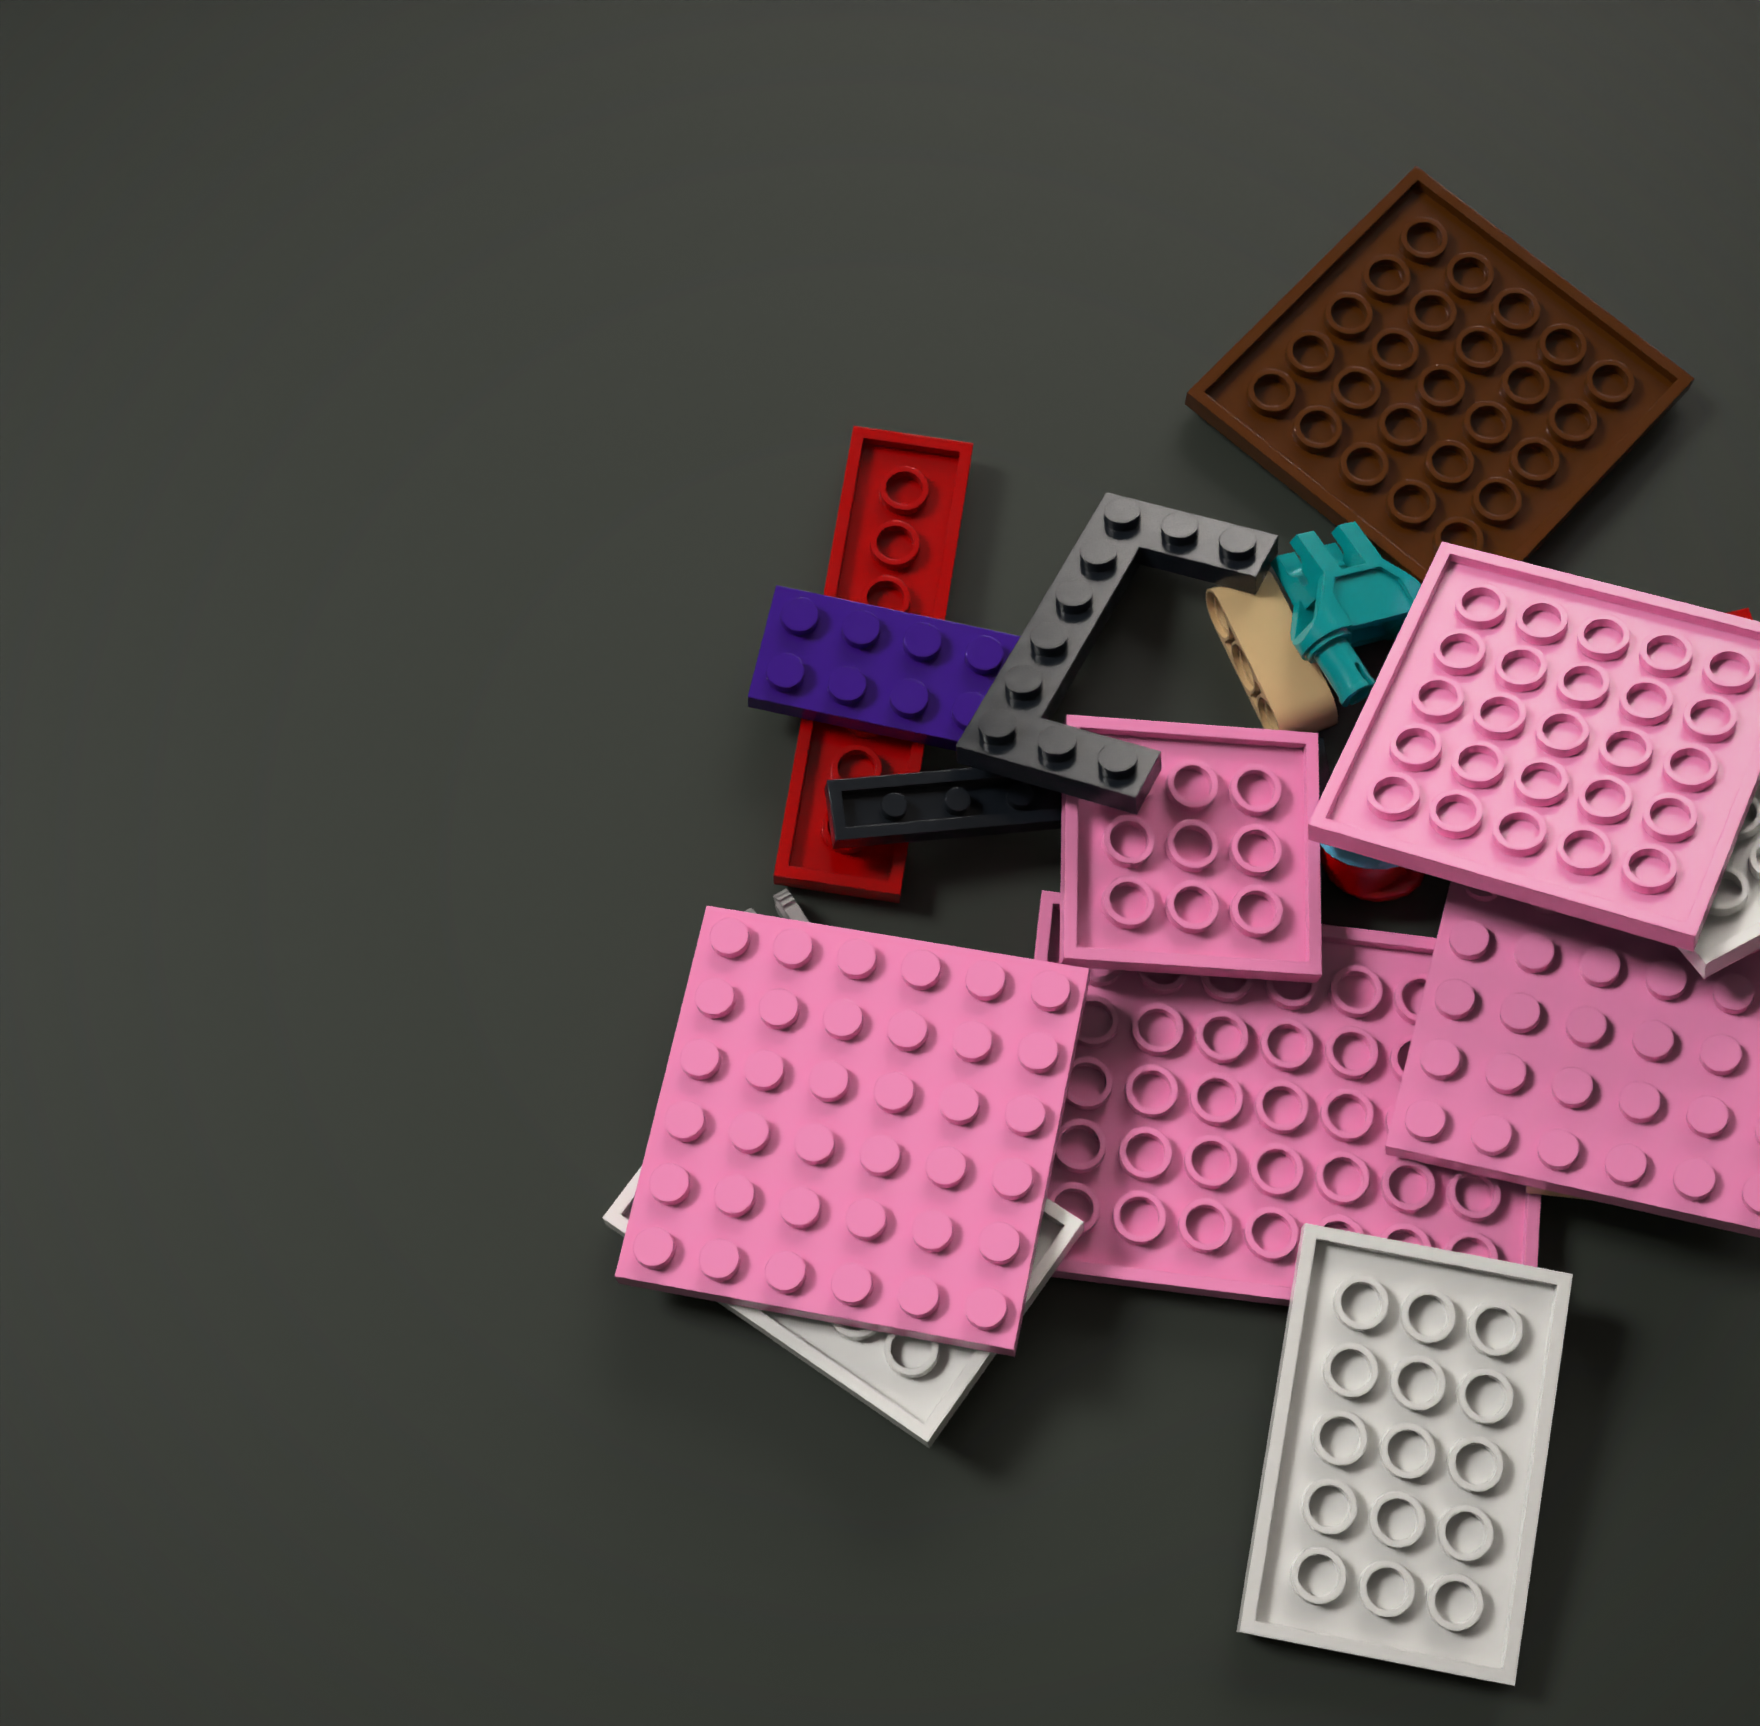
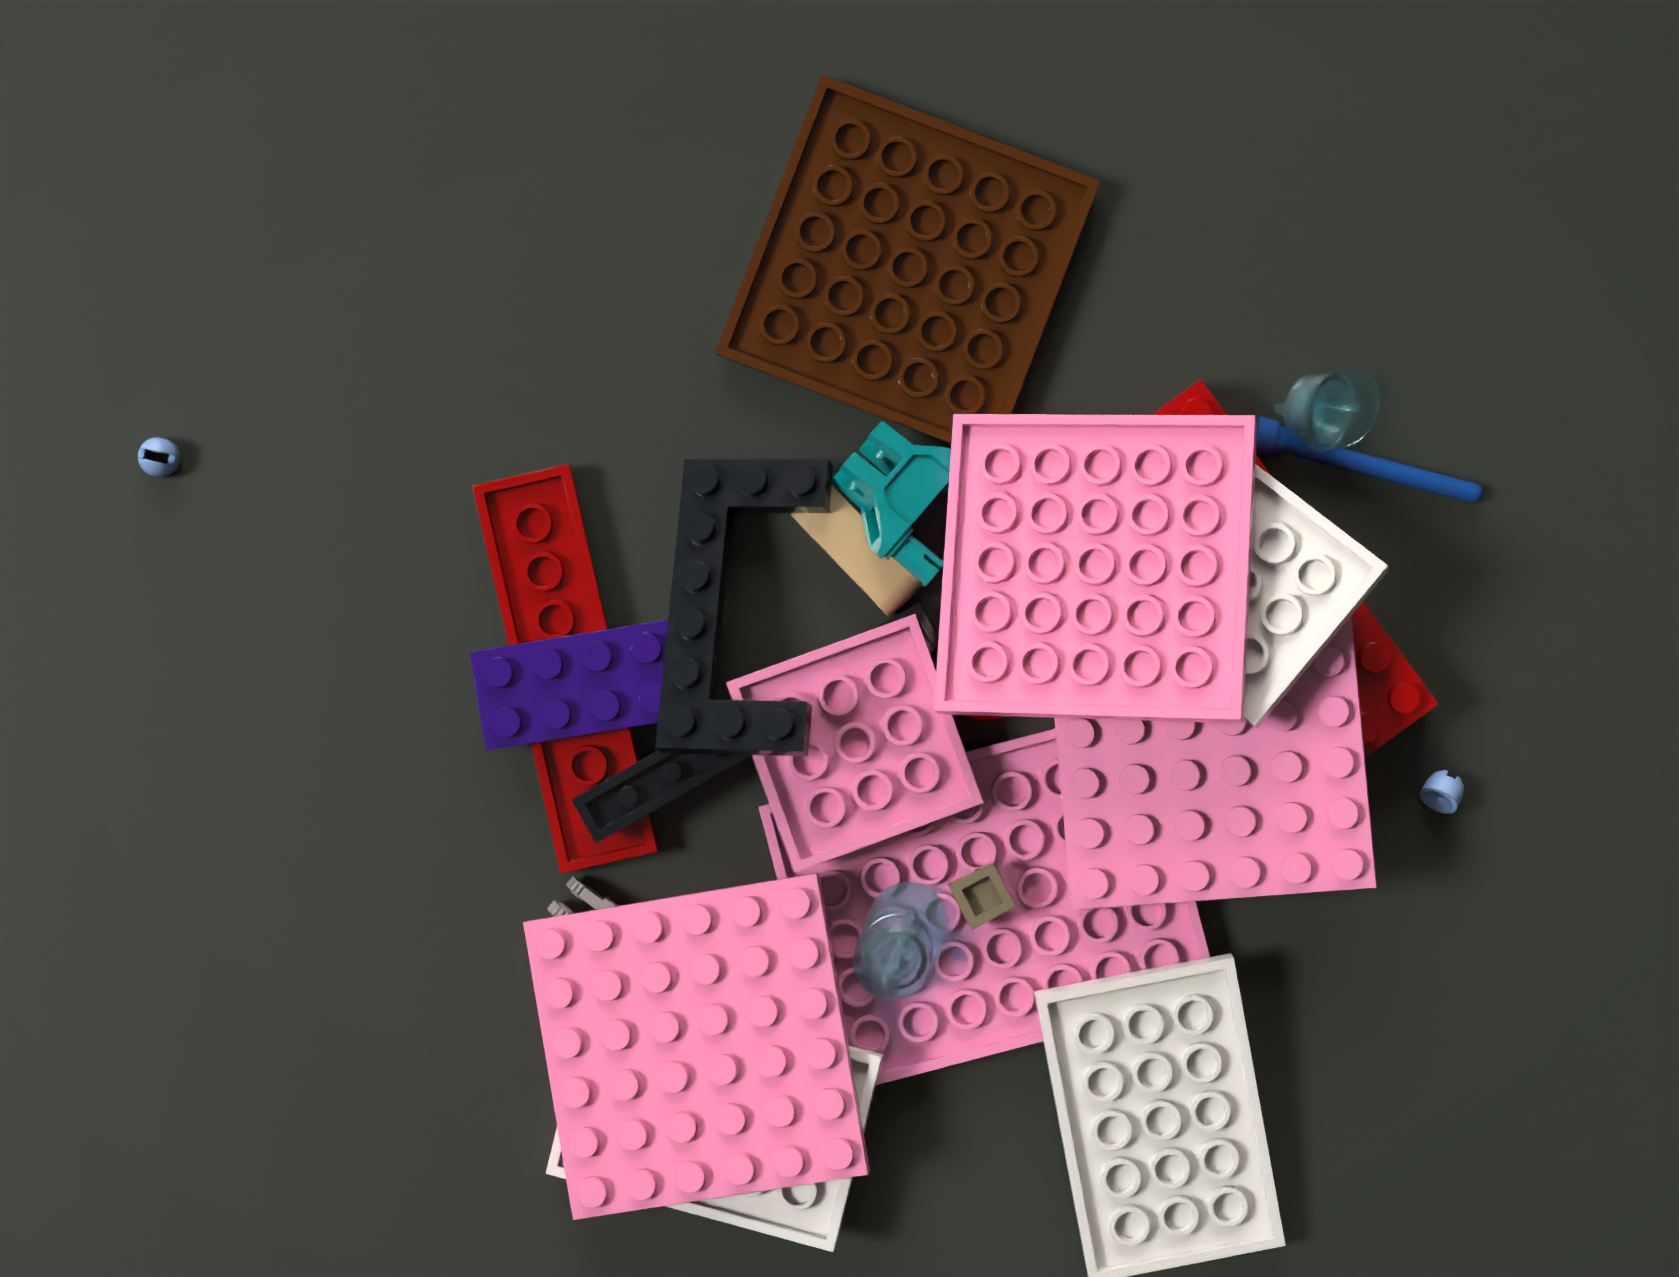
camera: 20 degrees left, 20 degrees up
(508, 286) = (159, 445): none -> light blue hinge
(1154, 1108) = (900, 940): none -> clear light blue piece
(1278, 1085) = (981, 895): none -> dark tan plate

